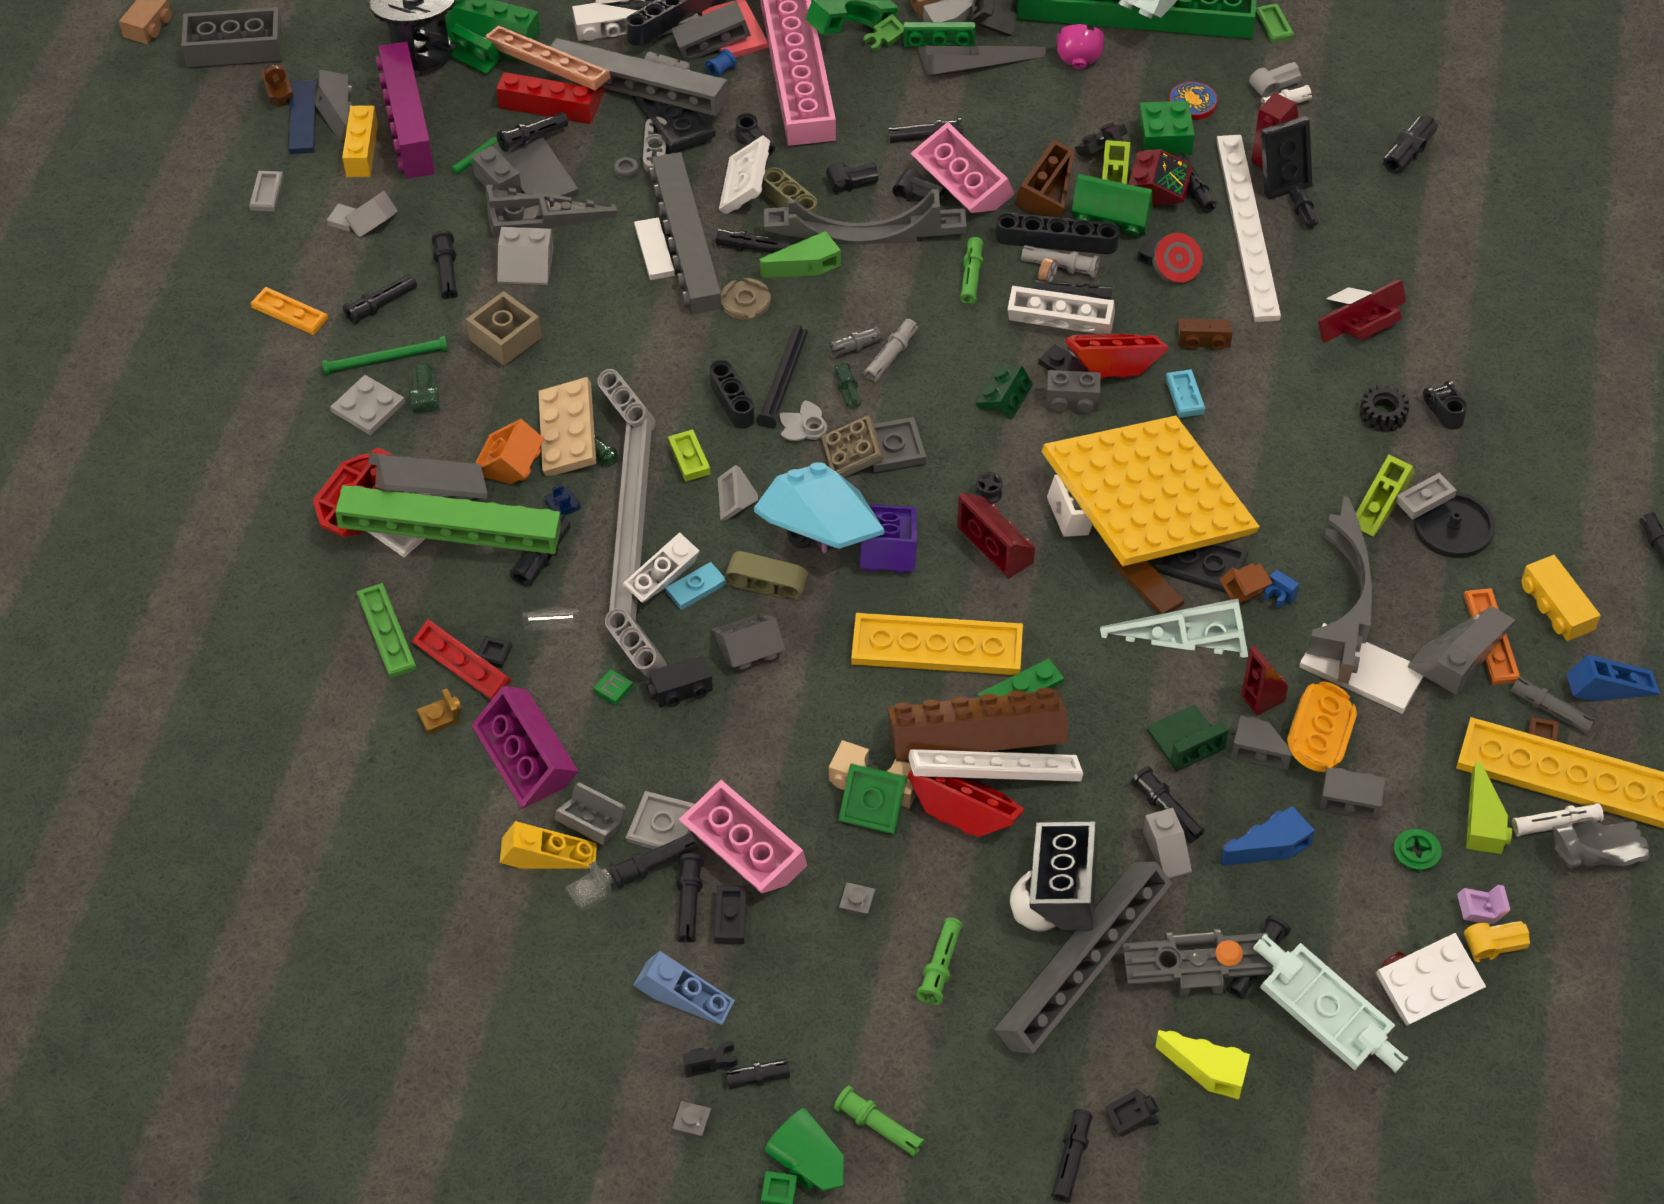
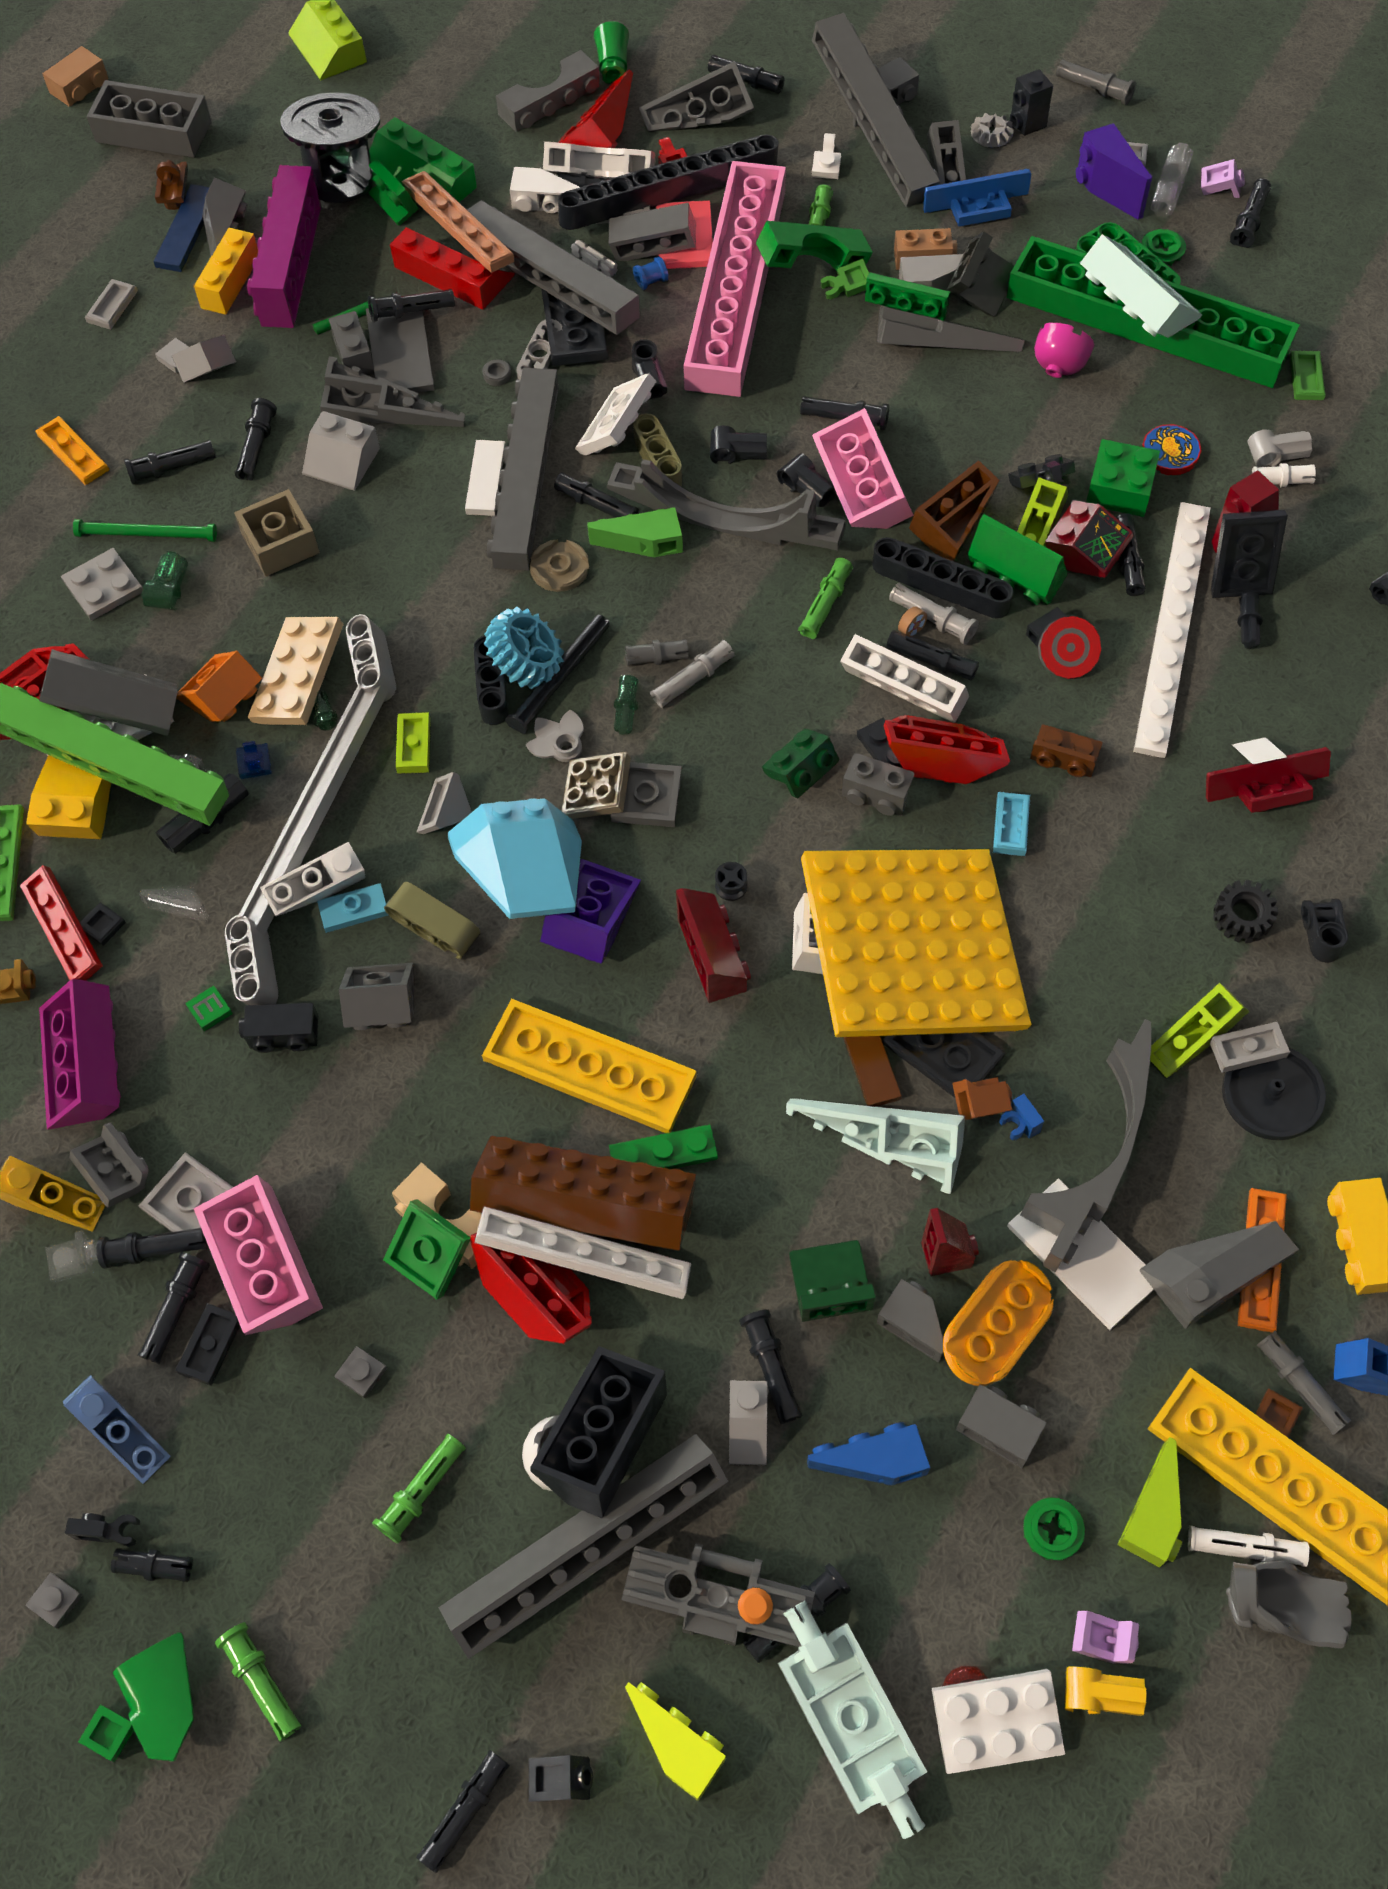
camera: 20 degrees right, 10 degrees up
(426, 568) = (68, 802): none -> yellow slope
(751, 361) = (523, 647): none -> medium azure gear

